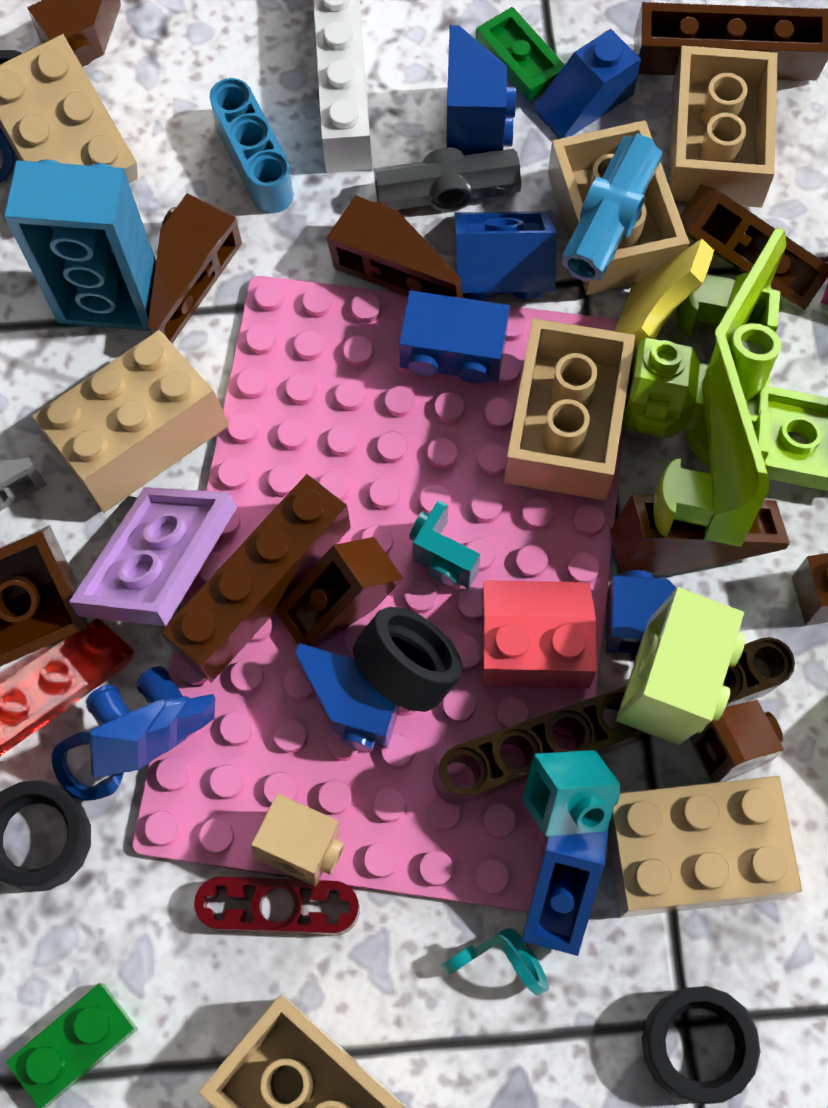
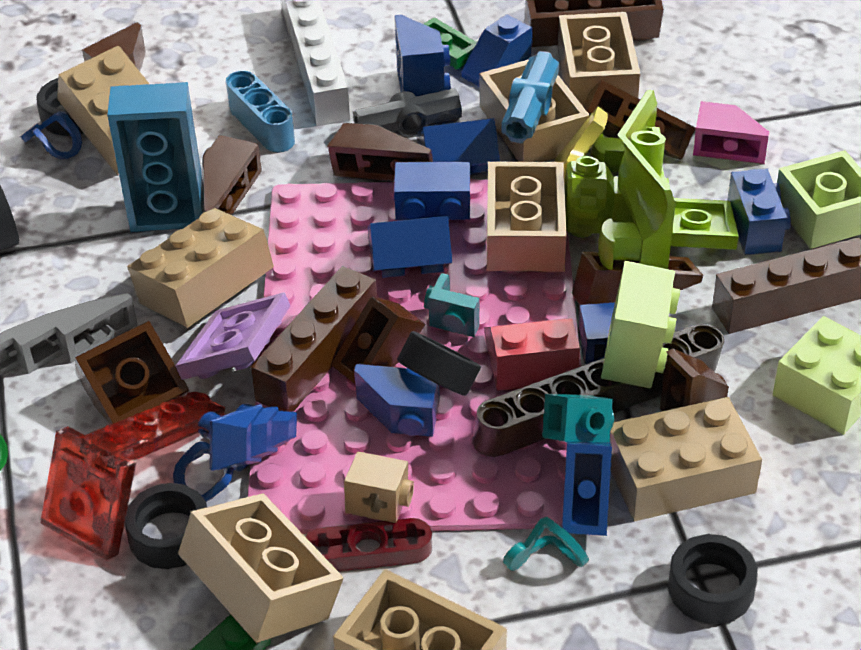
camera: 10 degrees left, 25 degrees down
(129, 946) = (260, 566): none -> tan brick
(406, 429) = (410, 245): none -> blue slope

